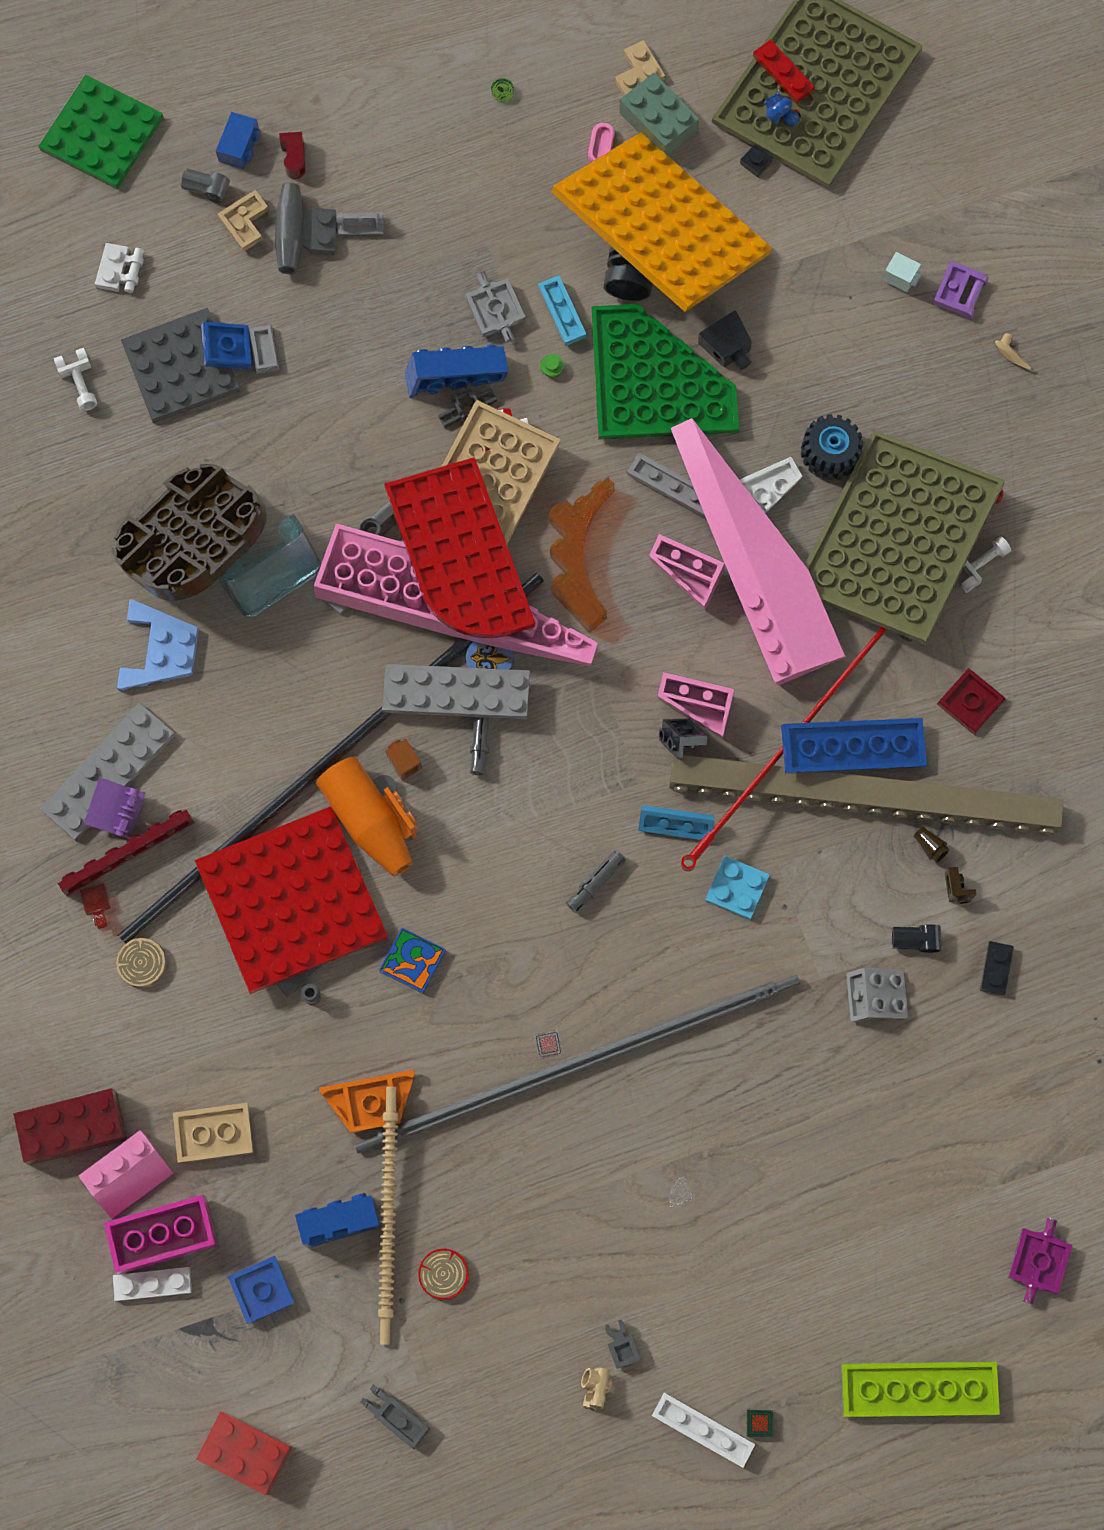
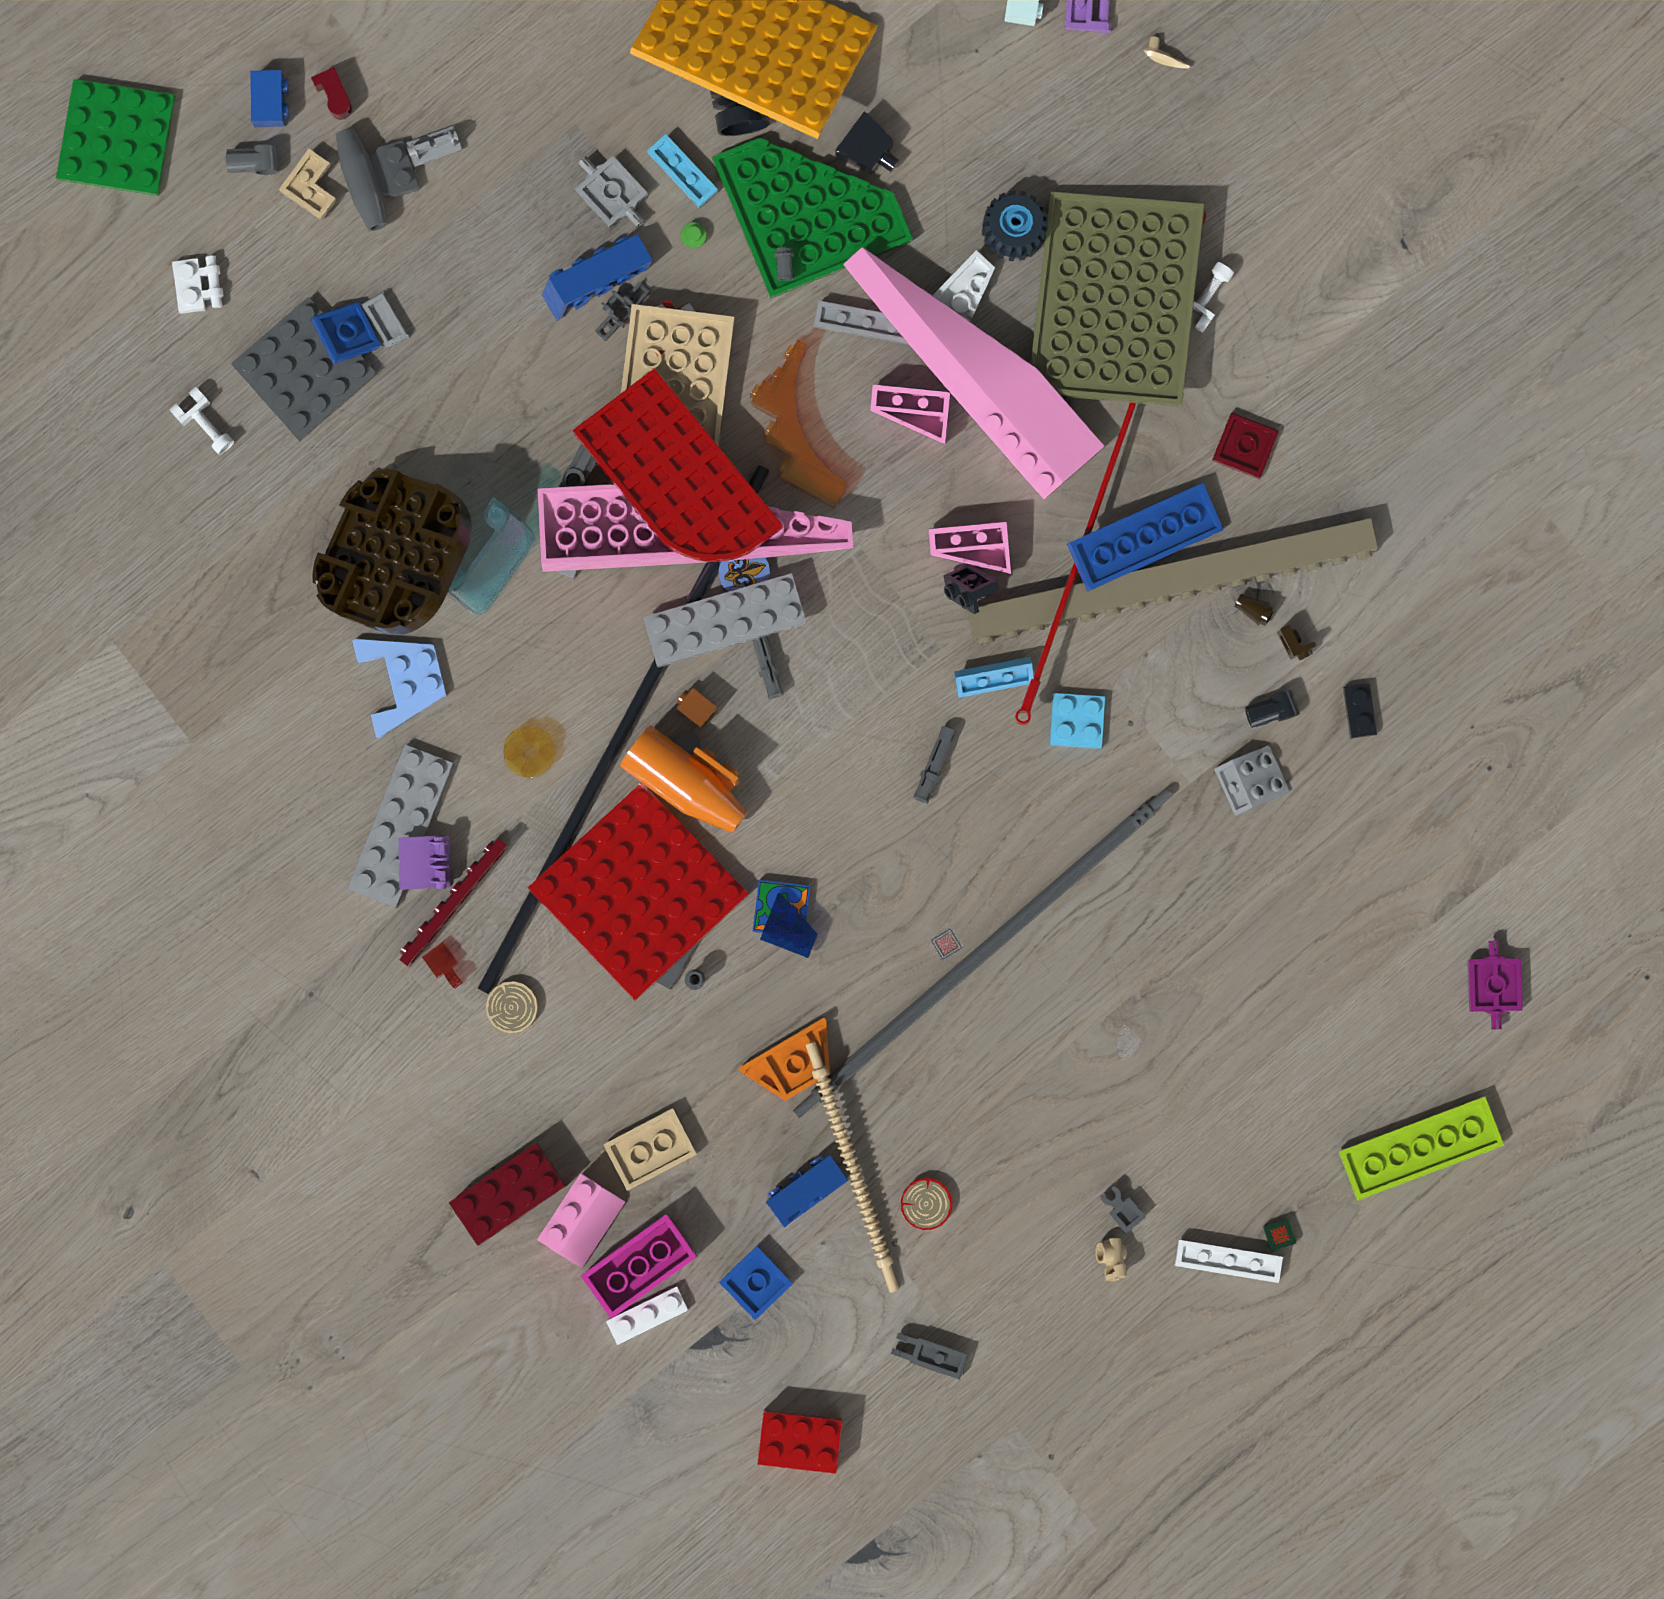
camera: 25 degrees left, 10 degrees up
(256, 751) = (529, 737): none -> clear yellow plate
(411, 979) = (788, 929): none -> clear blue wing
(620, 411) = (784, 264): none -> dark grey pin

